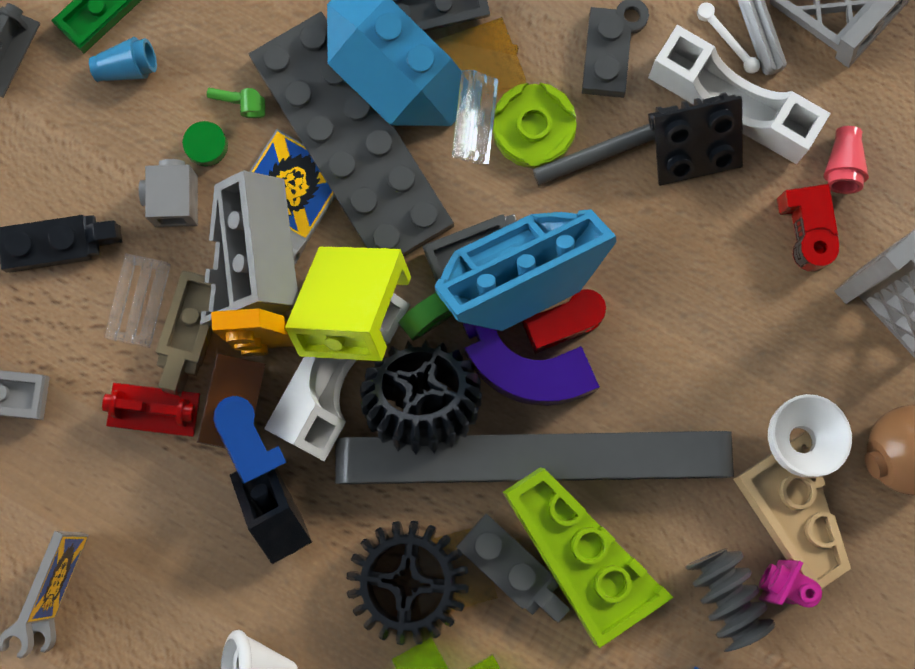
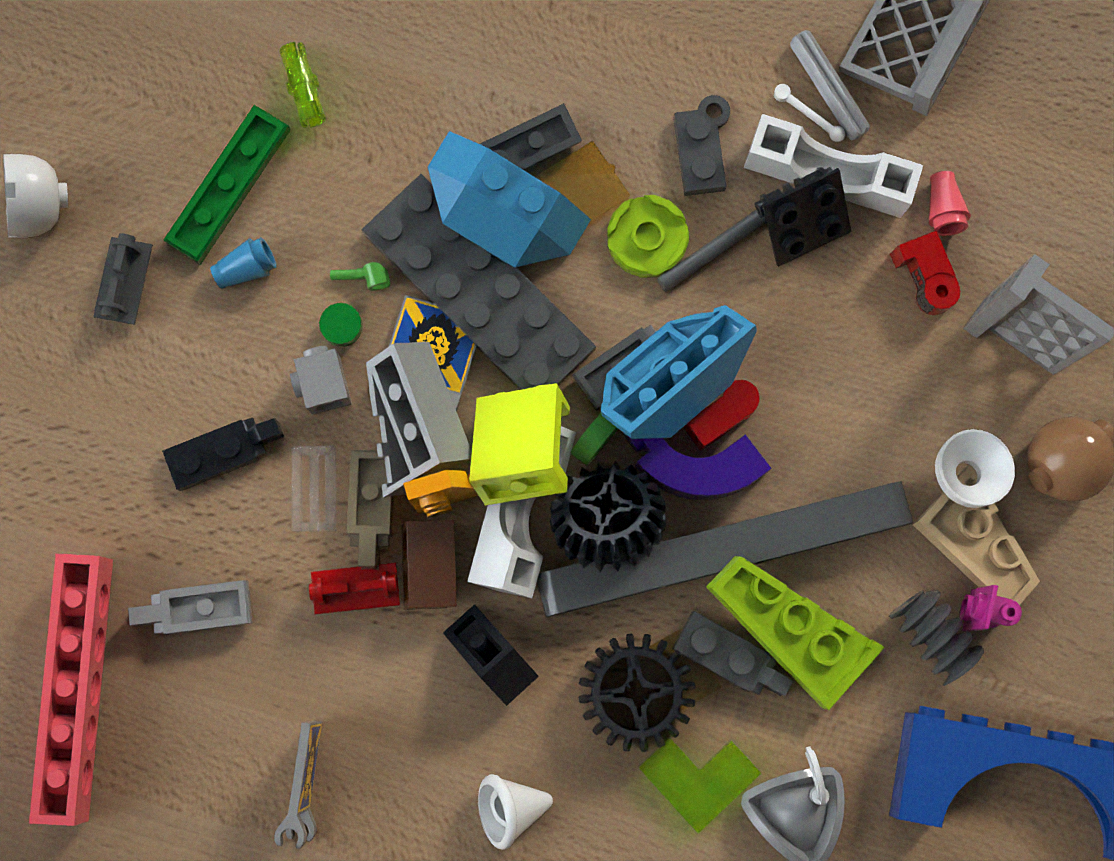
camera: 20 degrees left, 0 degrees up
(235, 425) = (456, 602): blue leg -> none
(475, 117) = (592, 242): clear tile -> none

